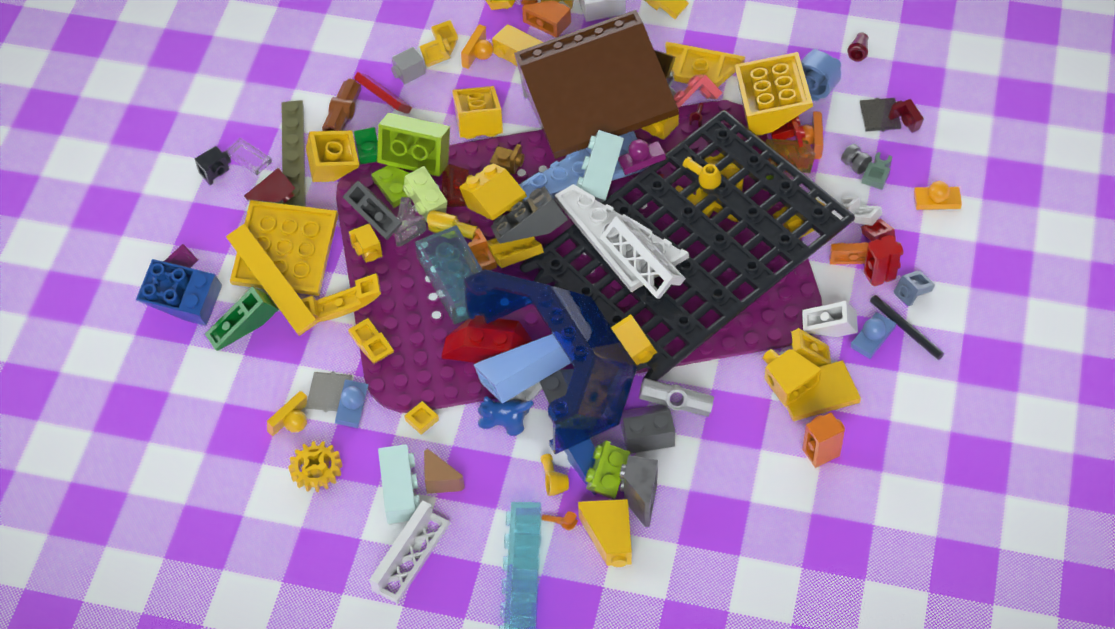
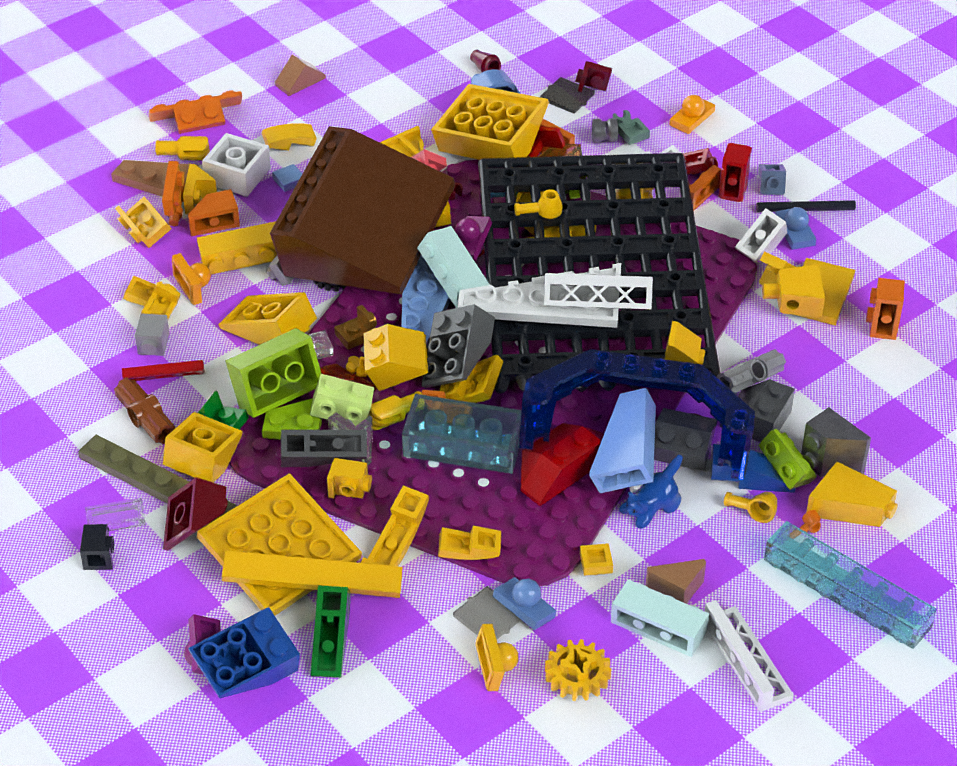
camera: 55 degrees left, 10 degrees down
(471, 149) = (322, 344): none -> clear plate

